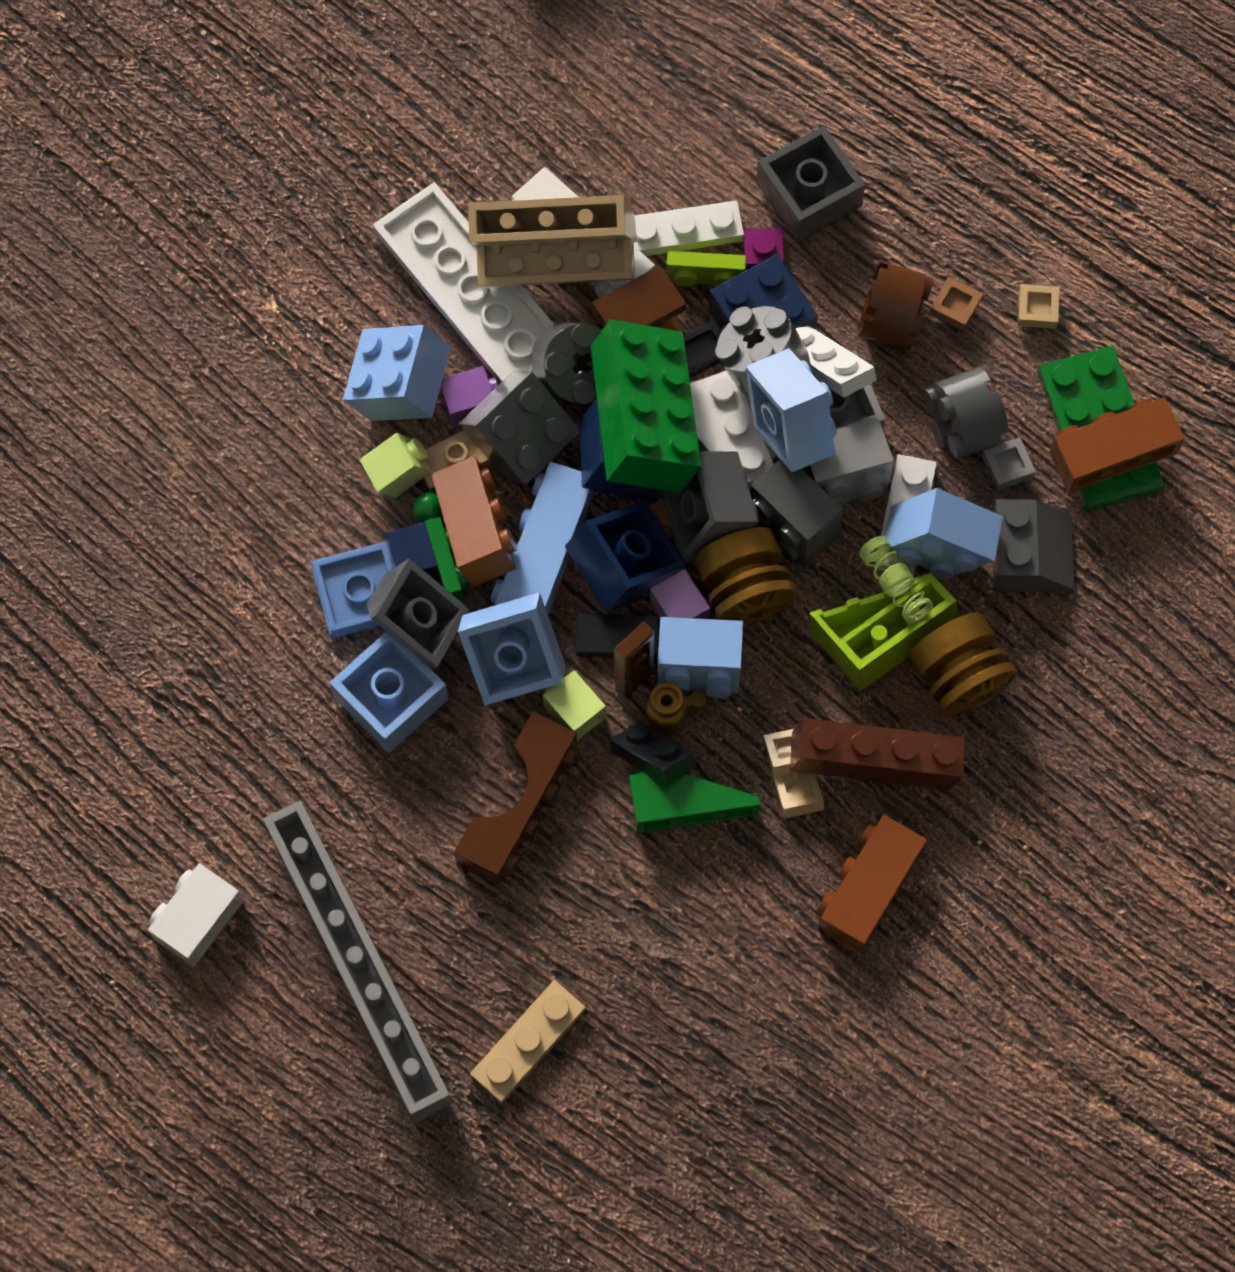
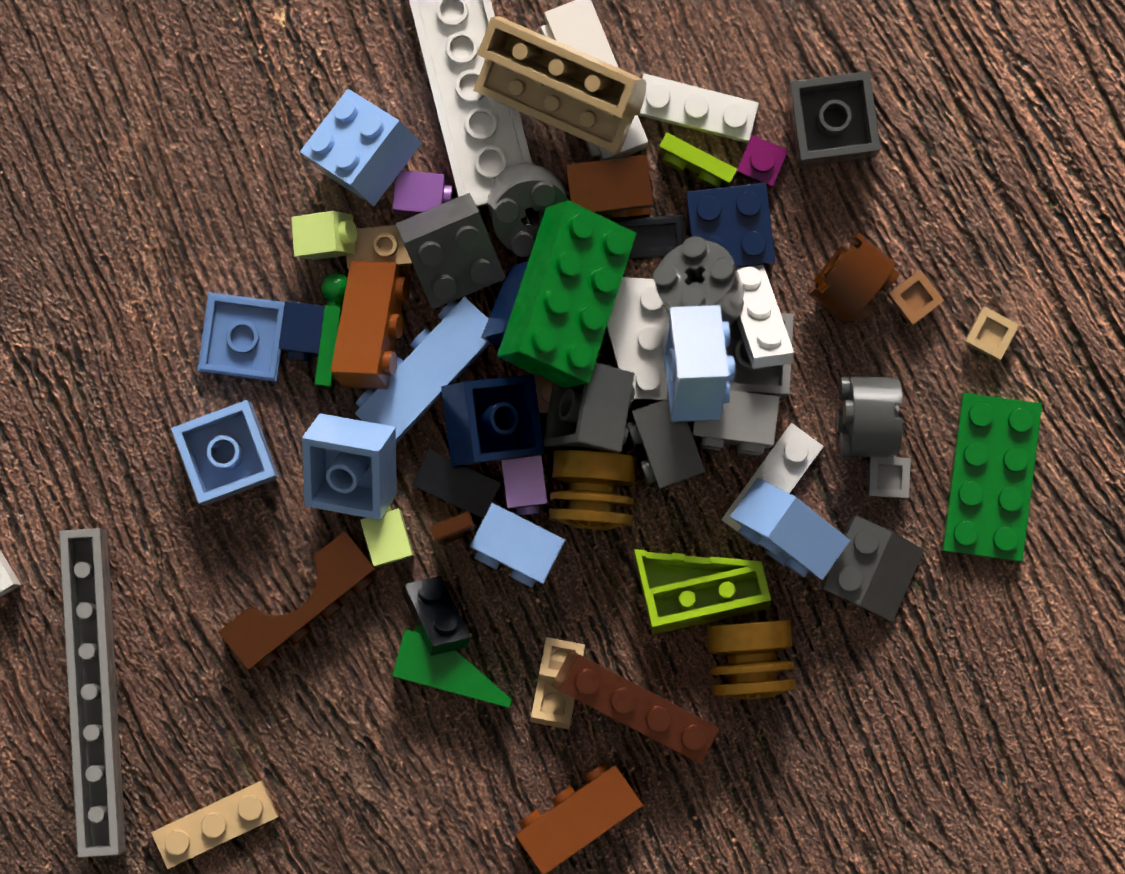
camera: 20 degrees right, 15 degrees up
(416, 612) = (275, 396): dark grey slope -> none
(669, 709) = (471, 577): pearl gold piece -> none
(895, 579) = (723, 558): yellowish green piece -> none
(1116, 444) = (993, 508): dark orange brick -> none

